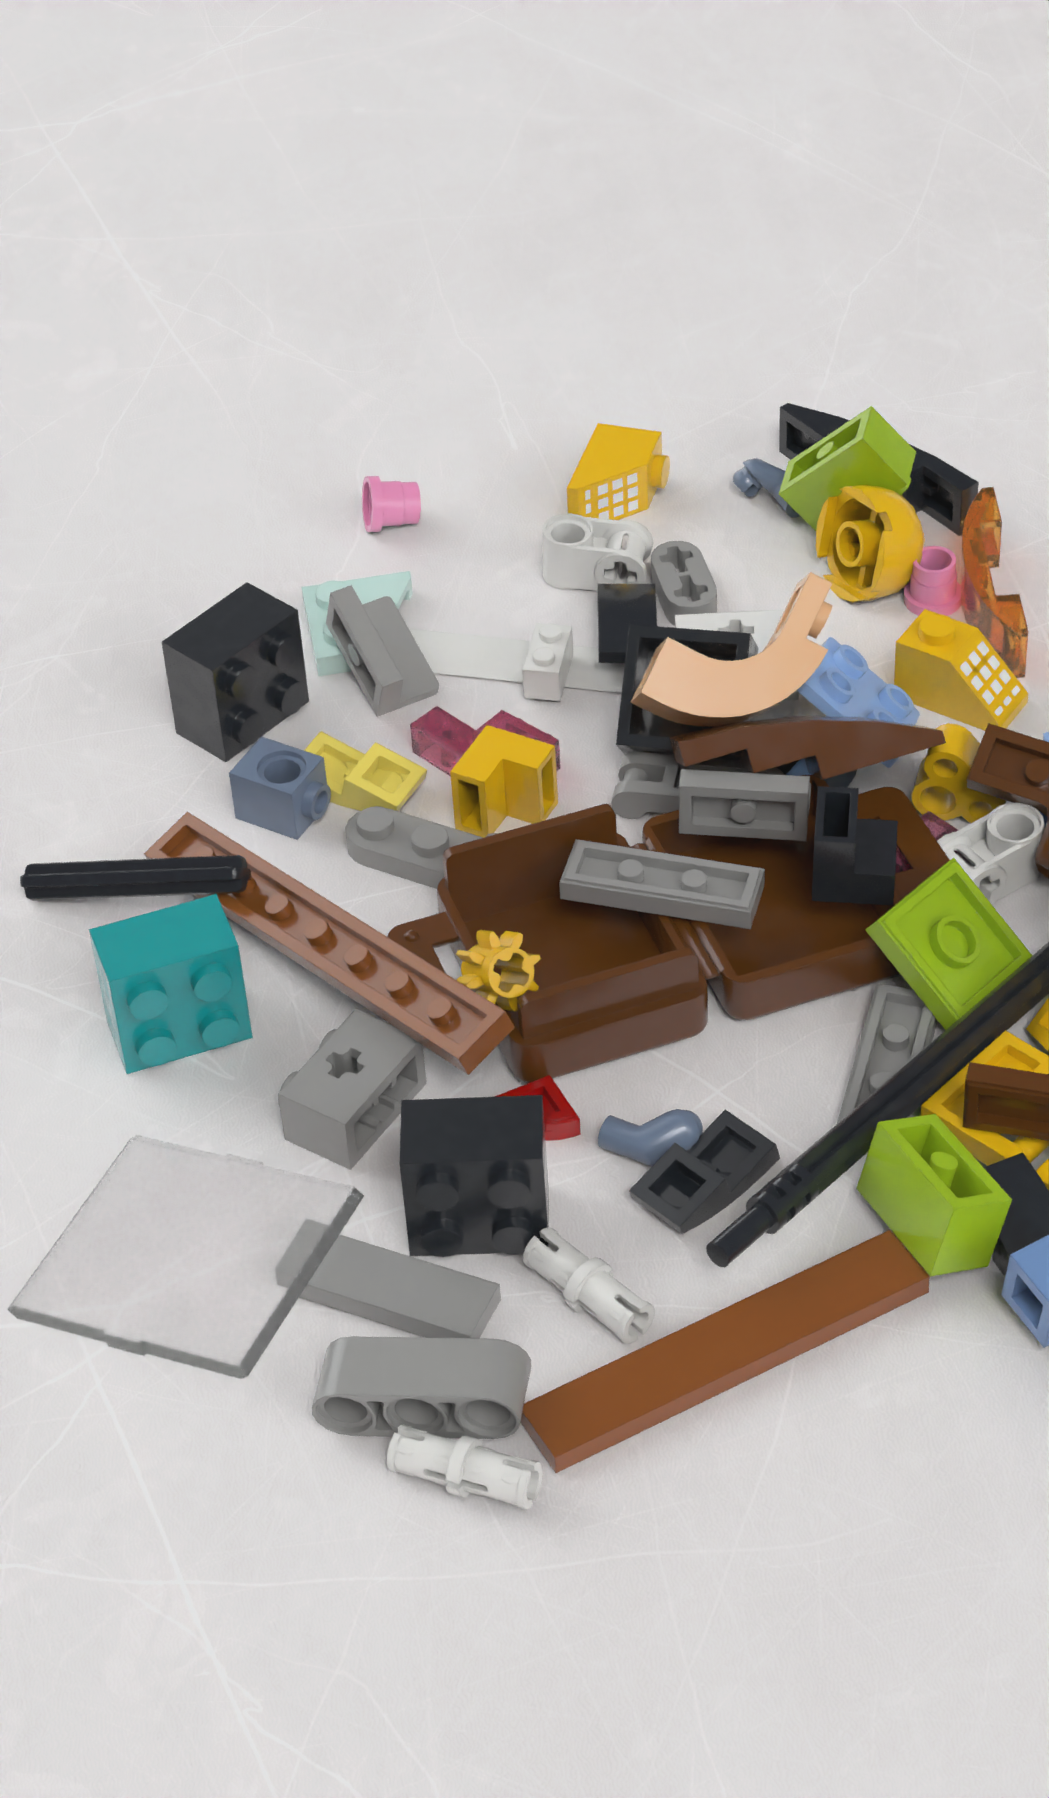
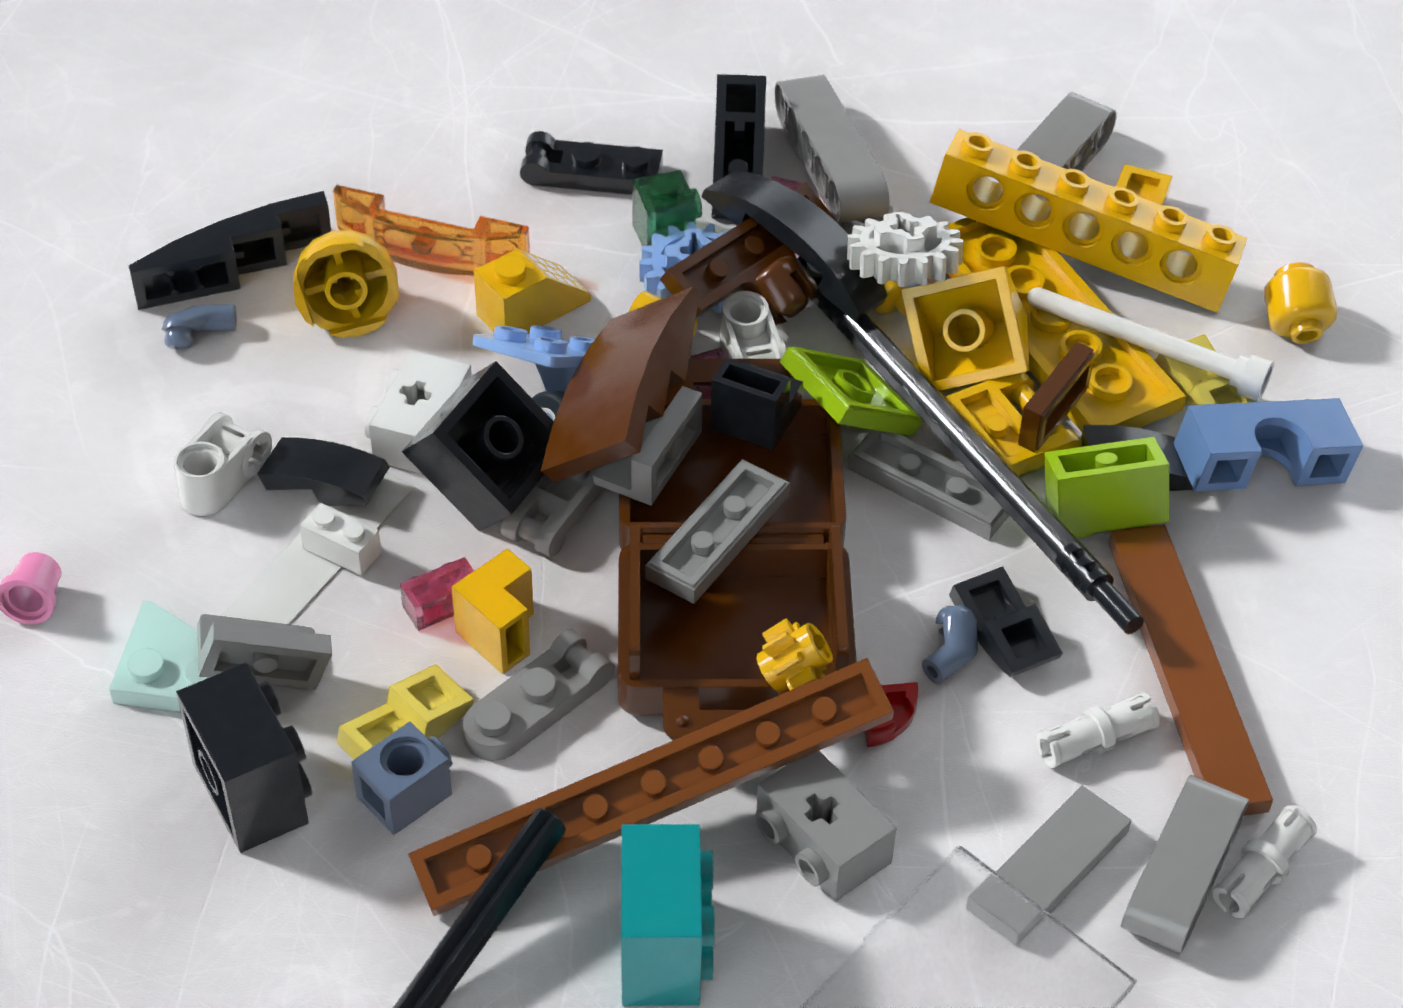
camera: 75 degrees left, 5 degrees up
(441, 738) = (407, 639): clear pink piece -> none
(473, 1174) = (996, 754): black brick -> none
(618, 473) = (113, 415): yellow slope -> none
(692, 580) = (290, 416): light grey beam -> none
(719, 692) = (546, 368): light nougat arch -> none
(855, 454) = (259, 258): lime brick -> none
(934, 583) = (410, 271): bright pink piece -> none

